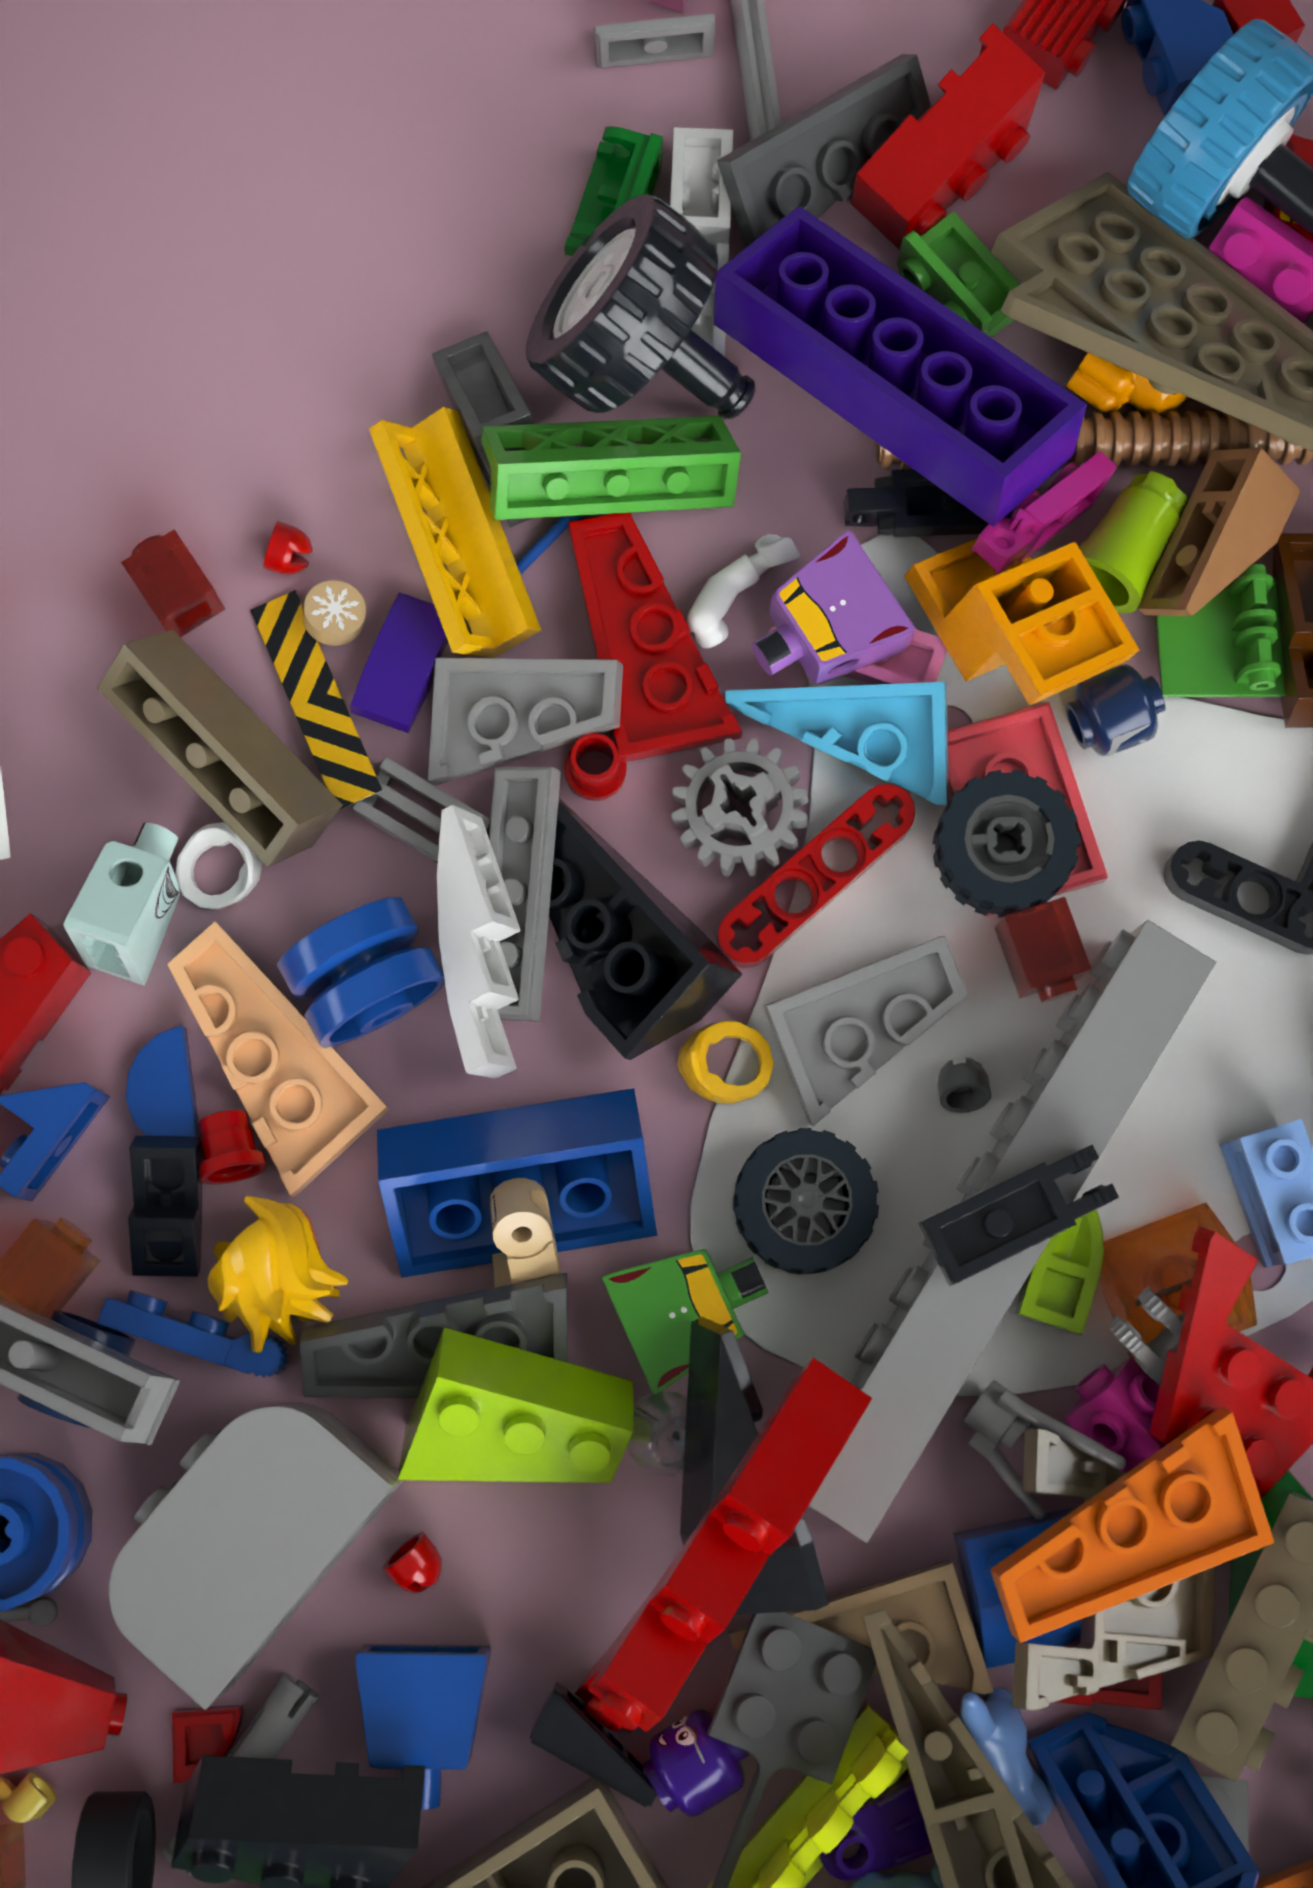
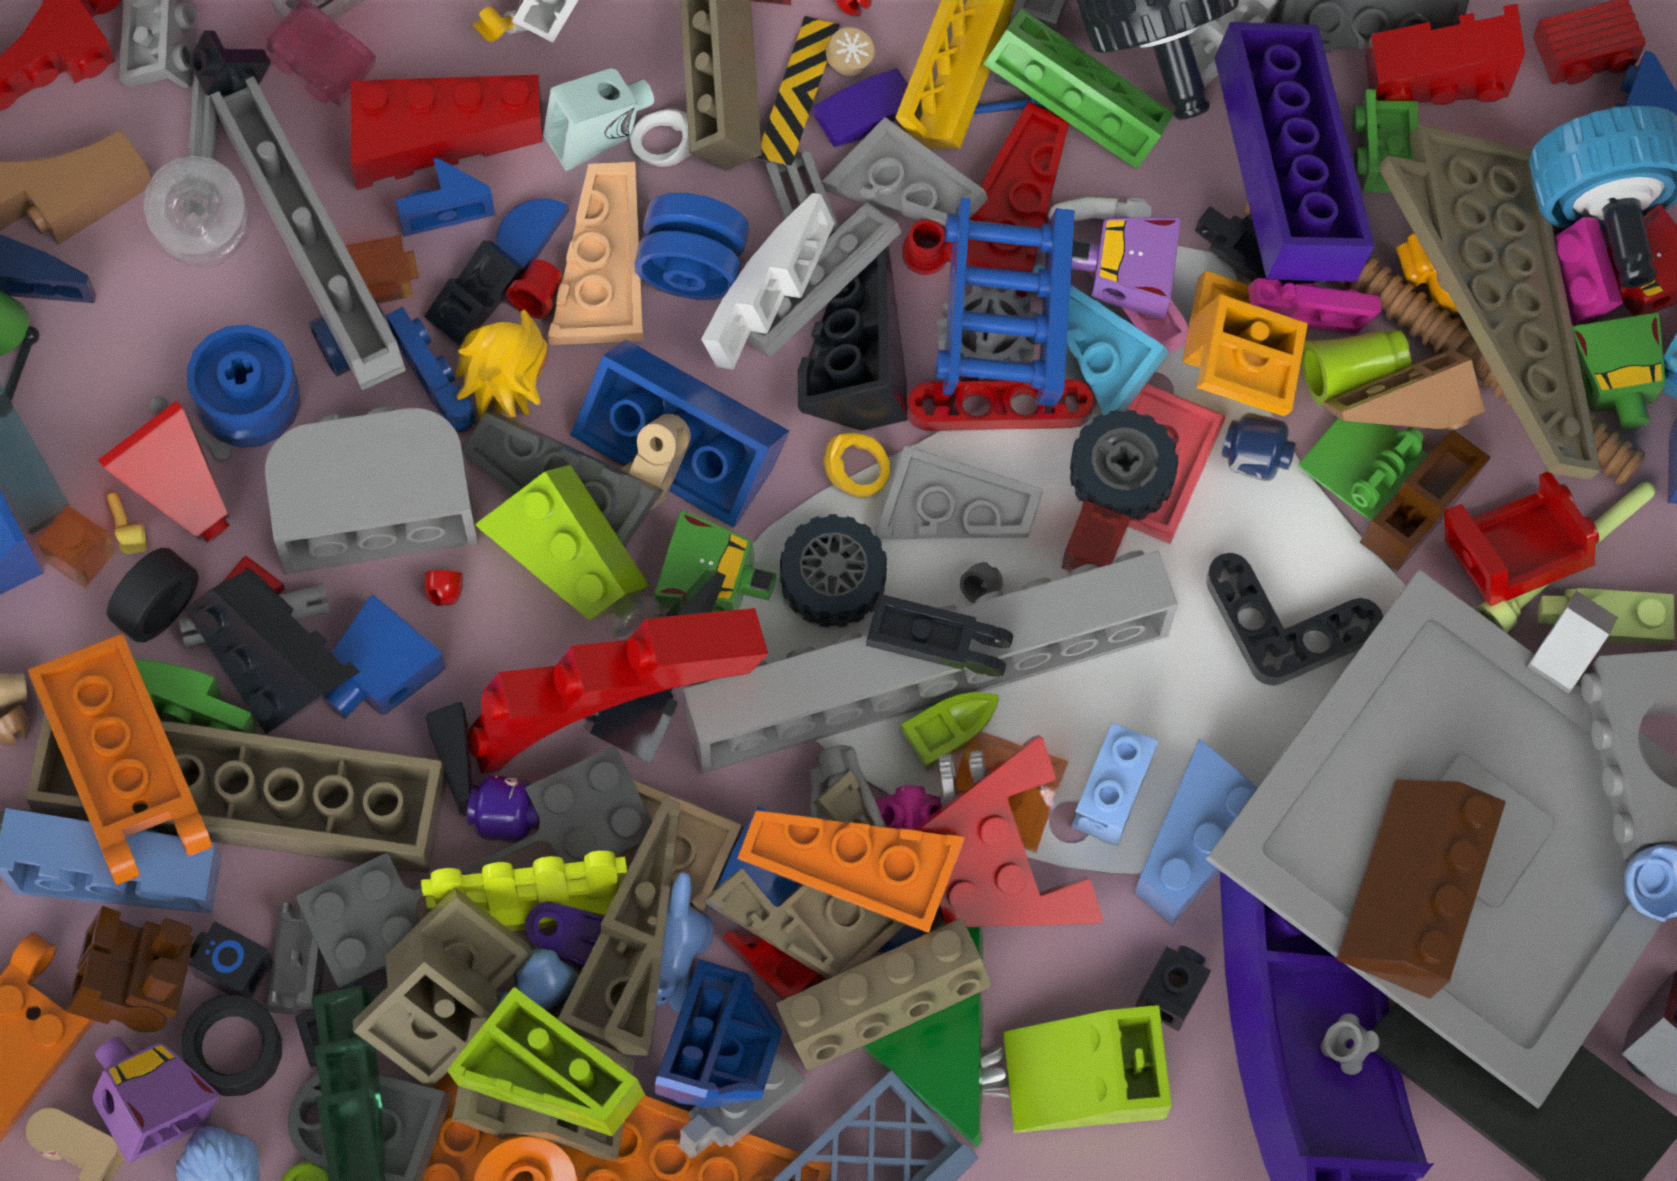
camera: 40 degrees right, 10 degrees down
(774, 708) = (1049, 283): none -> blue fence

